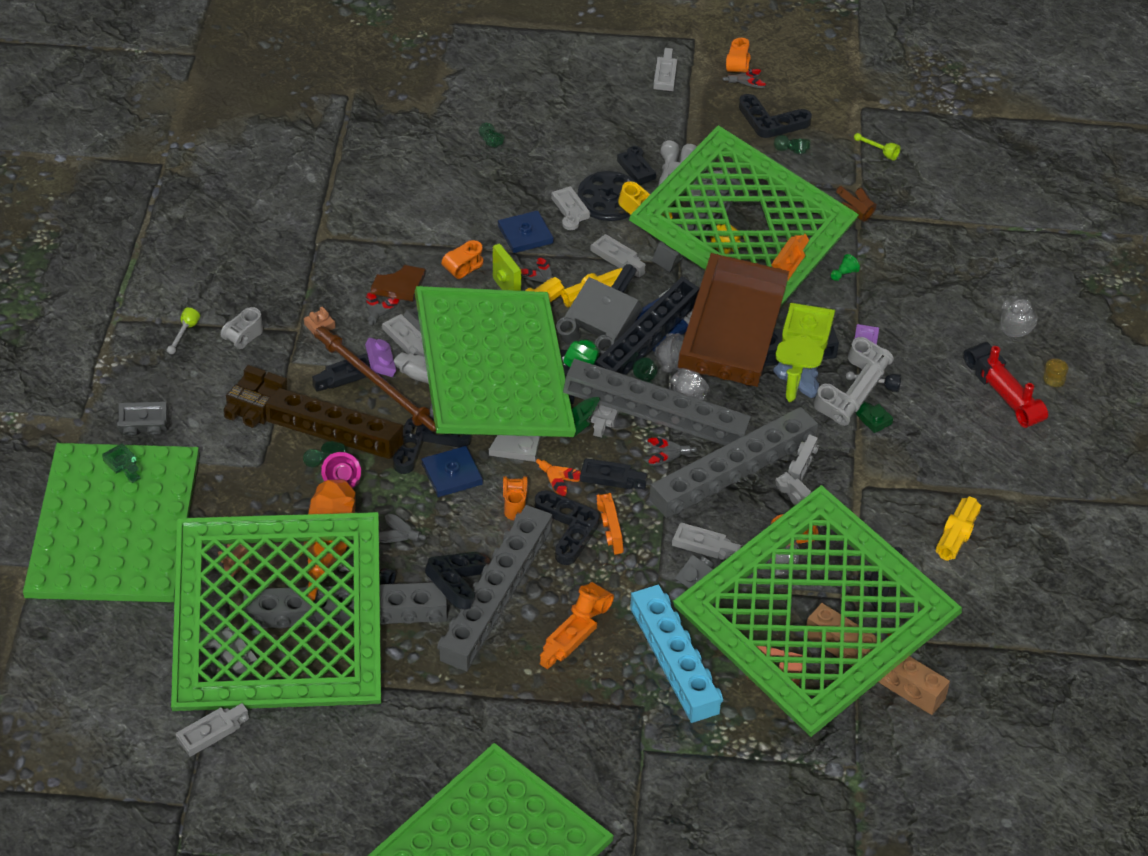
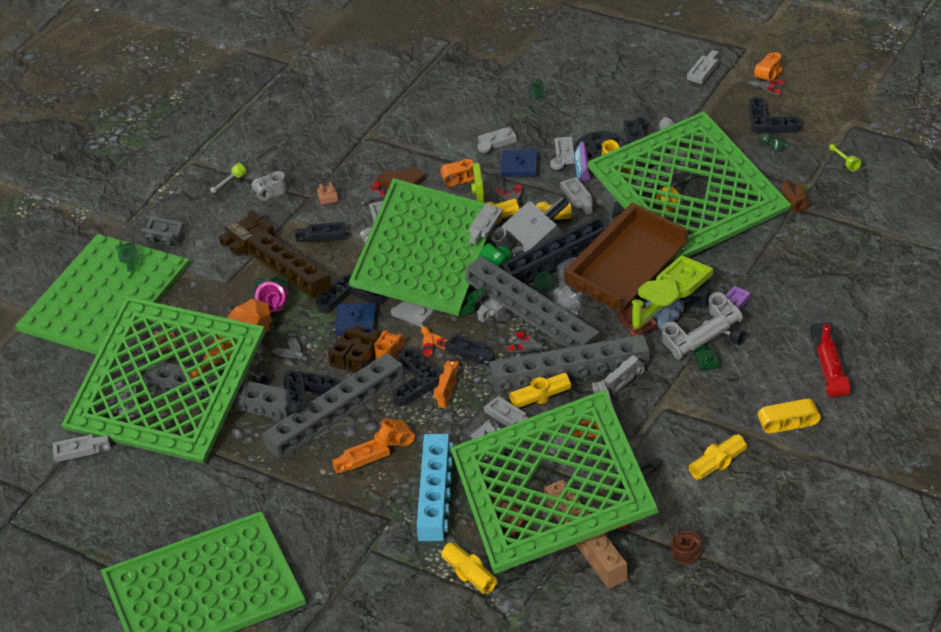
camera: 30 degrees right, 5 degrees down
(334, 344) = (323, 209): reddish brown bar -> none
(380, 357) = (352, 227): medium lavender plate -> none
(475, 501) = (353, 349): none -> dark brown hips
(480, 208) = (496, 139): none -> light grey hinge
(546, 315) = (484, 222): none -> light grey hinge
(602, 215) = (581, 163): none -> medium lavender slope
(723, 503) = (540, 390): none -> yellow piece
(766, 384) = (625, 318): none -> copper piece
(773, 738) = (469, 568): none -> yellow piece
(791, 254) = (704, 221): orange hinge -> none
(848, 265) = (758, 241): green piece -> none
(988, 642) = (686, 547): none -> copper wheel
(1002, 460) = (788, 416): none -> yellow beam
(1018, 318) = (872, 309): clear helmet -> none
(1055, 372) = (880, 361): clear yellow wheel -> none

